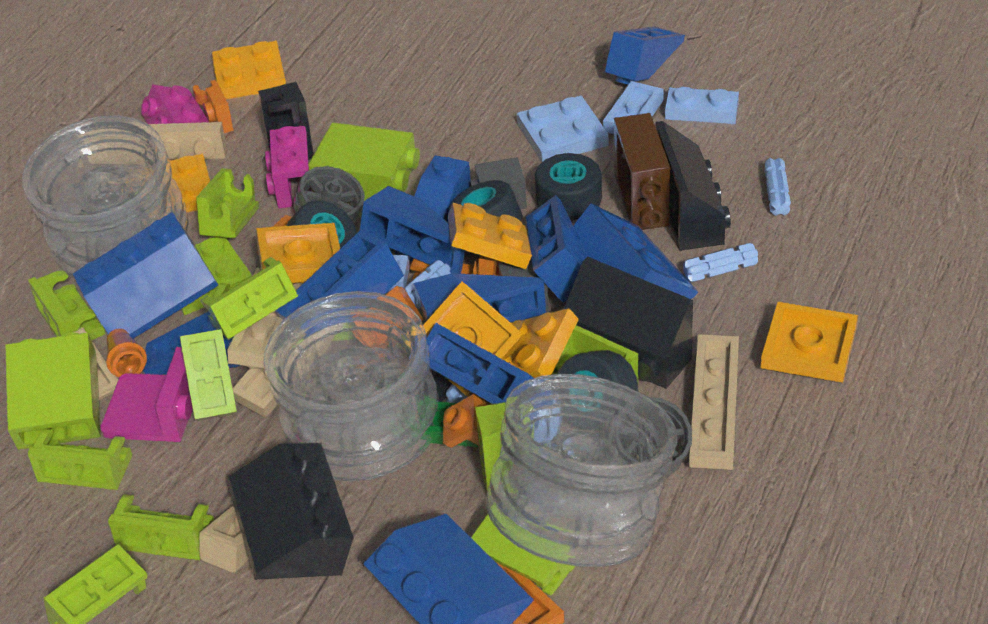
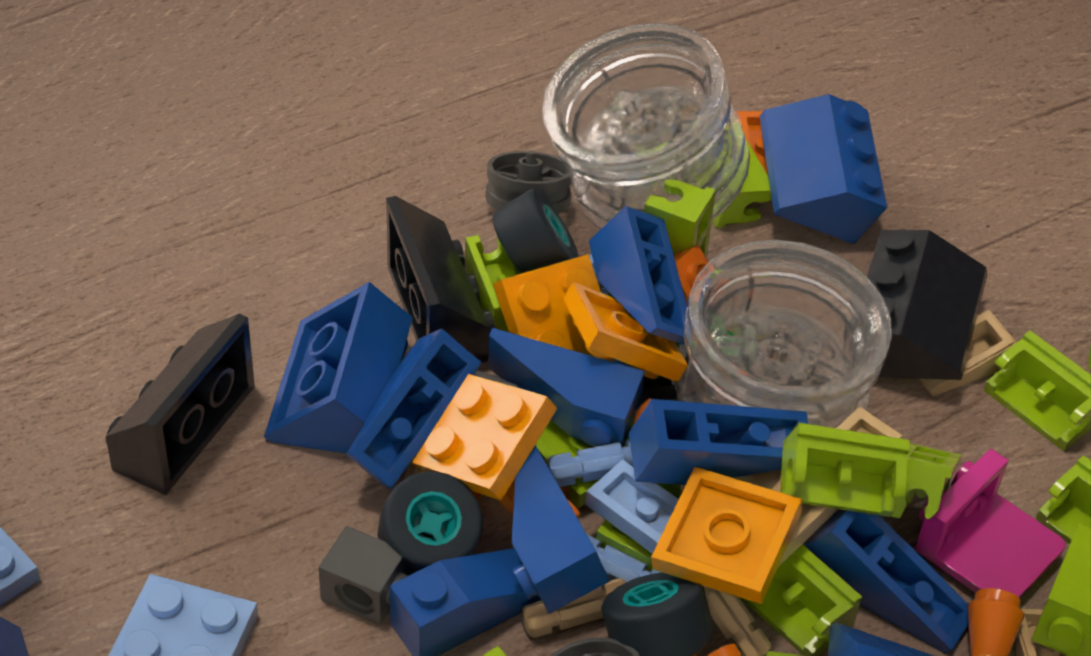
camera: 150 degrees left, 5 degrees up
(574, 181) = (288, 518): black wheel -> none
(635, 100) = (74, 592): light blue plate -> none
(642, 171) = (208, 444): reddish brown window -> none
(714, 402) = (433, 190): tan plate -> none
(720, 262) = (276, 337): light blue axle -> none
(777, 186) = (68, 377): light blue axle -> none
(809, 342) = (277, 194): light orange plate -> none

